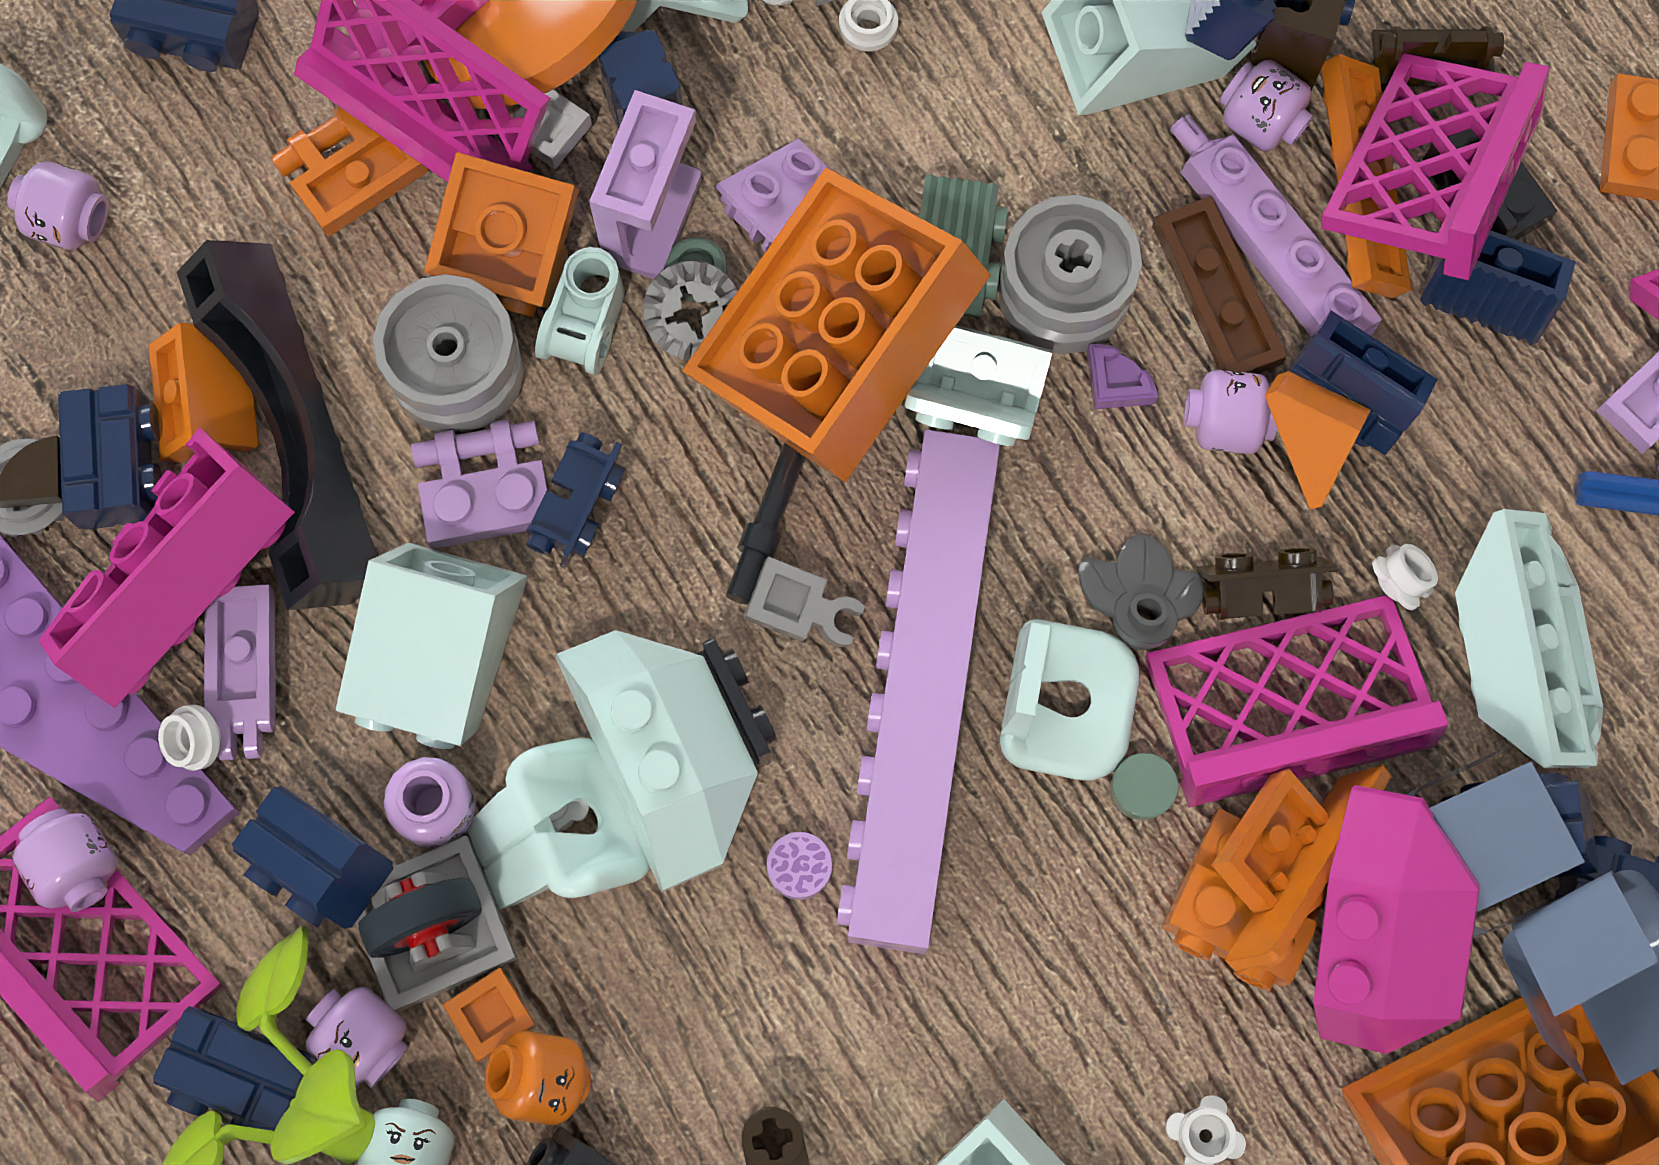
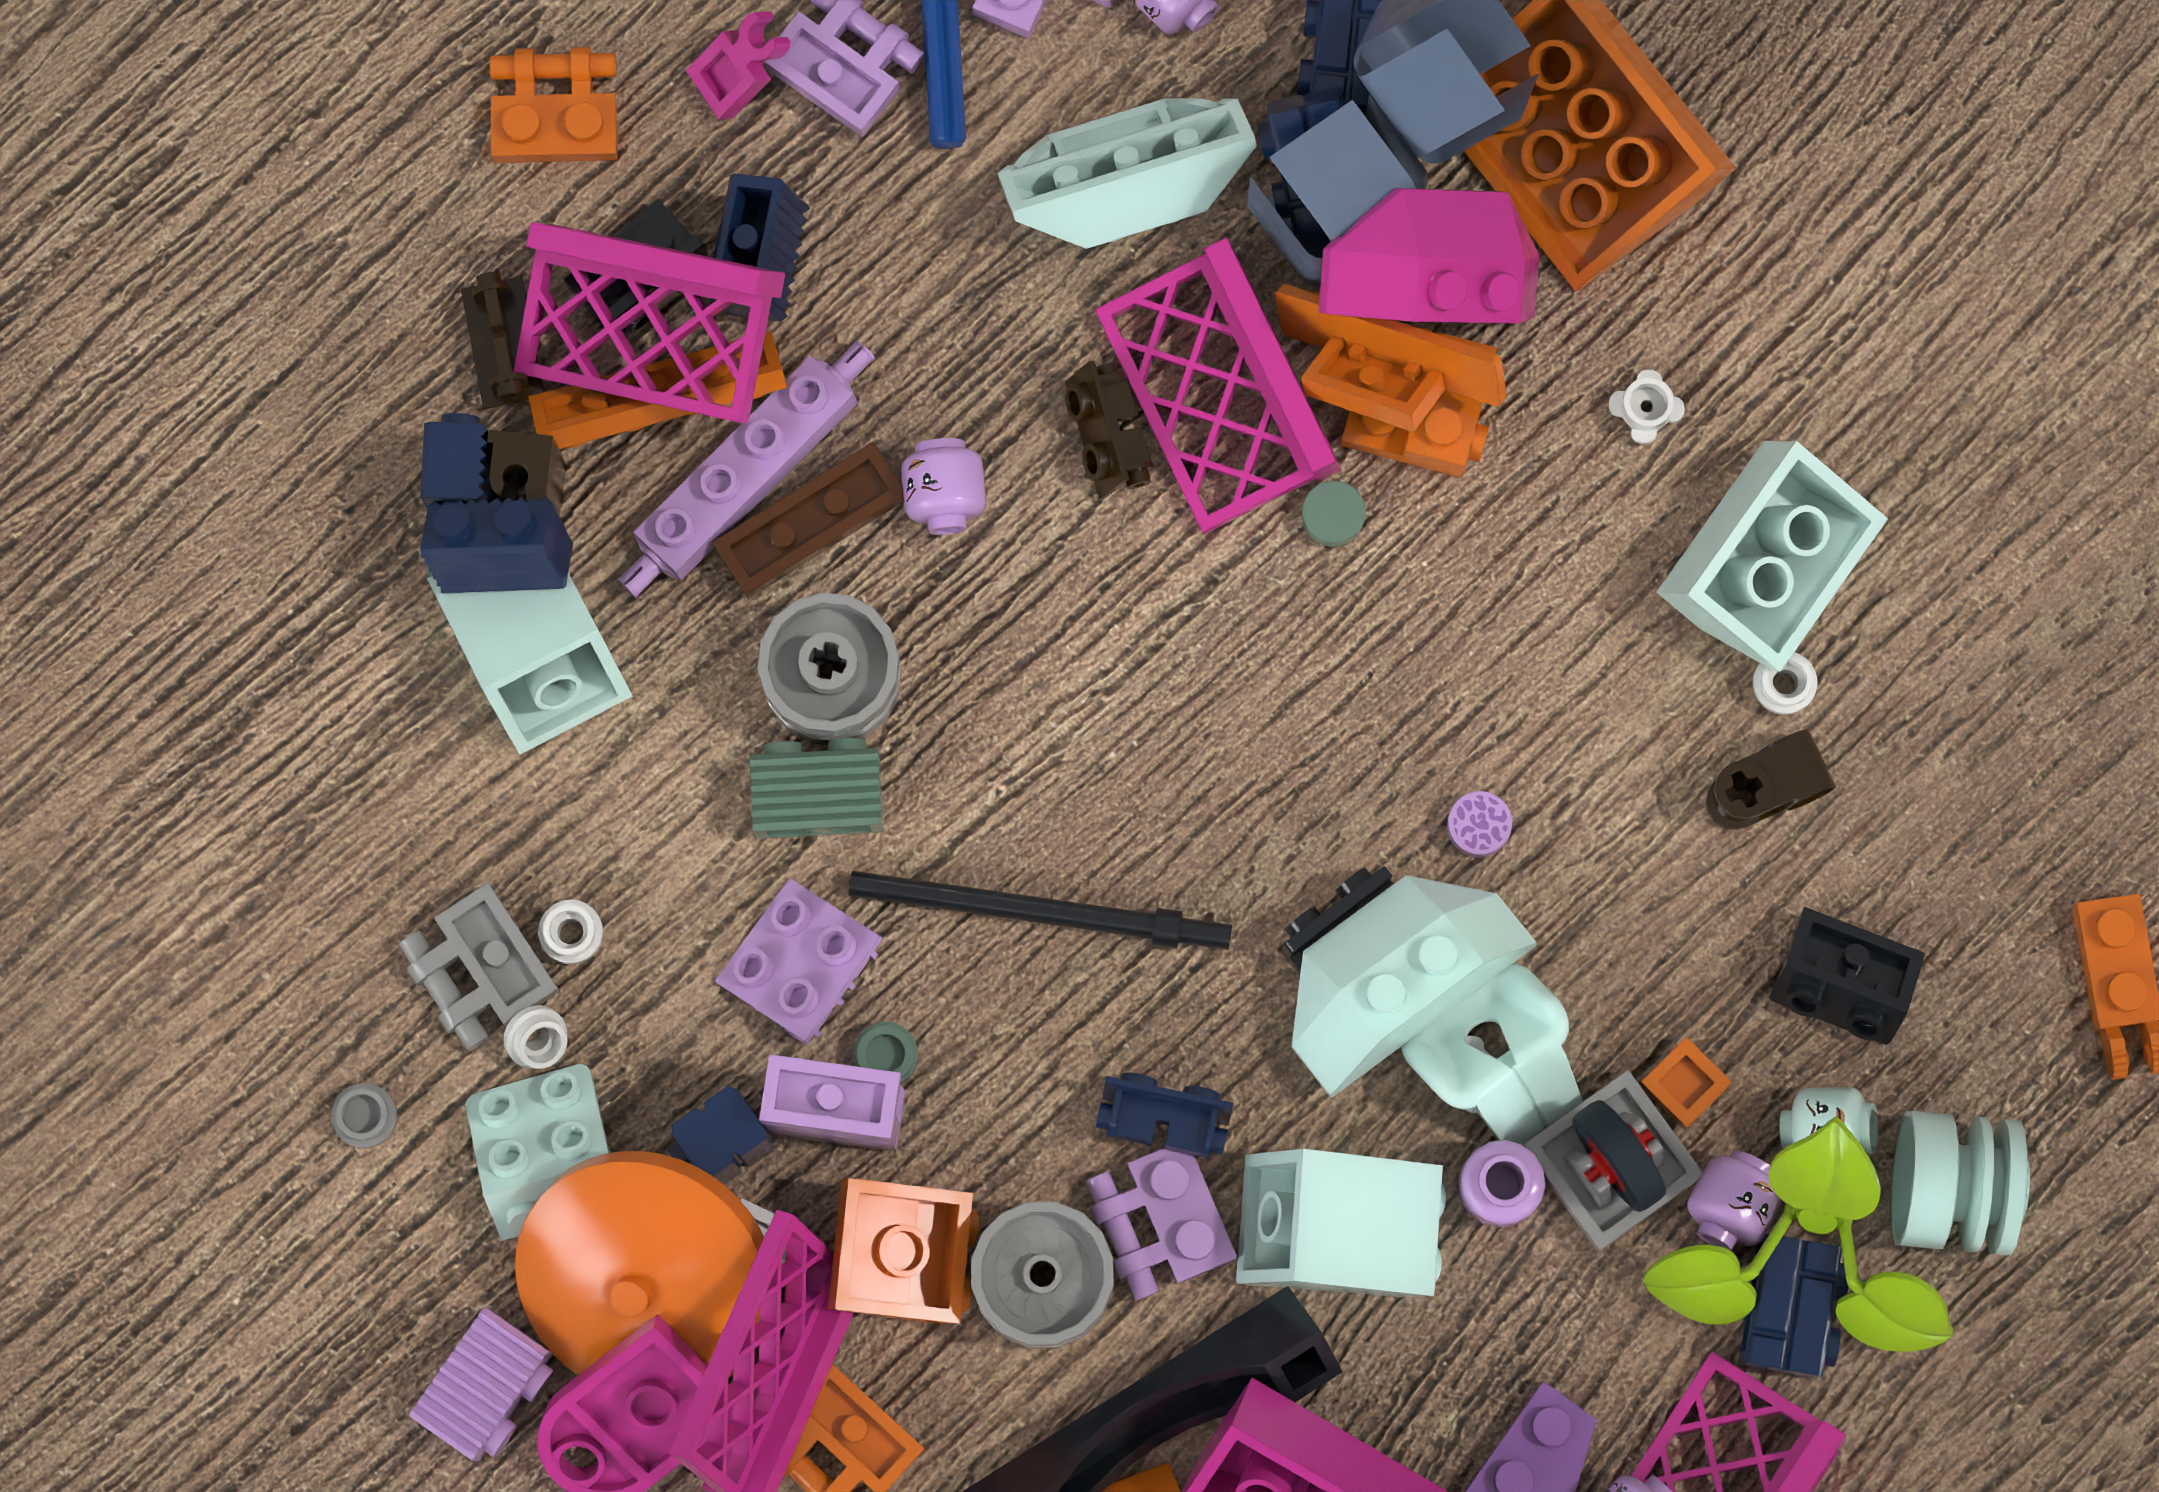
camera: 100 degrees left, 5 degrees up
(189, 738) = (1489, 1433): white plate -> none
(241, 668) = (1410, 1408): lavender hinge -> none
(311, 859) = (1581, 1283): dark blue brick -> none
(537, 1077) = (1734, 1020): orange head -> none
(581, 323) = (968, 1155): light aqua piece -> none
(664, 298) = (936, 1072): light grey gear -> none
(792, 602) = (1224, 880): light grey plate -> none
(838, 322) = (940, 887): orange slope -> none
(923, 694) = (1286, 737): lavender brick -> none
(982, 384) = (970, 738): light aqua bracket -> none
(1063, 745) = (1218, 606): light aqua piece -> none
(1118, 379) = (921, 607): medium lavender tile -> none
(1141, 583) = (1131, 547): dark grey plate -> none
(1266, 105) = (601, 501): lavender head -> none
(1315, 430) = (954, 399): orange slope -> none
(1367, 373) = (892, 368): dark blue brick -> none
(1406, 574) = (1074, 297): white plate -> none

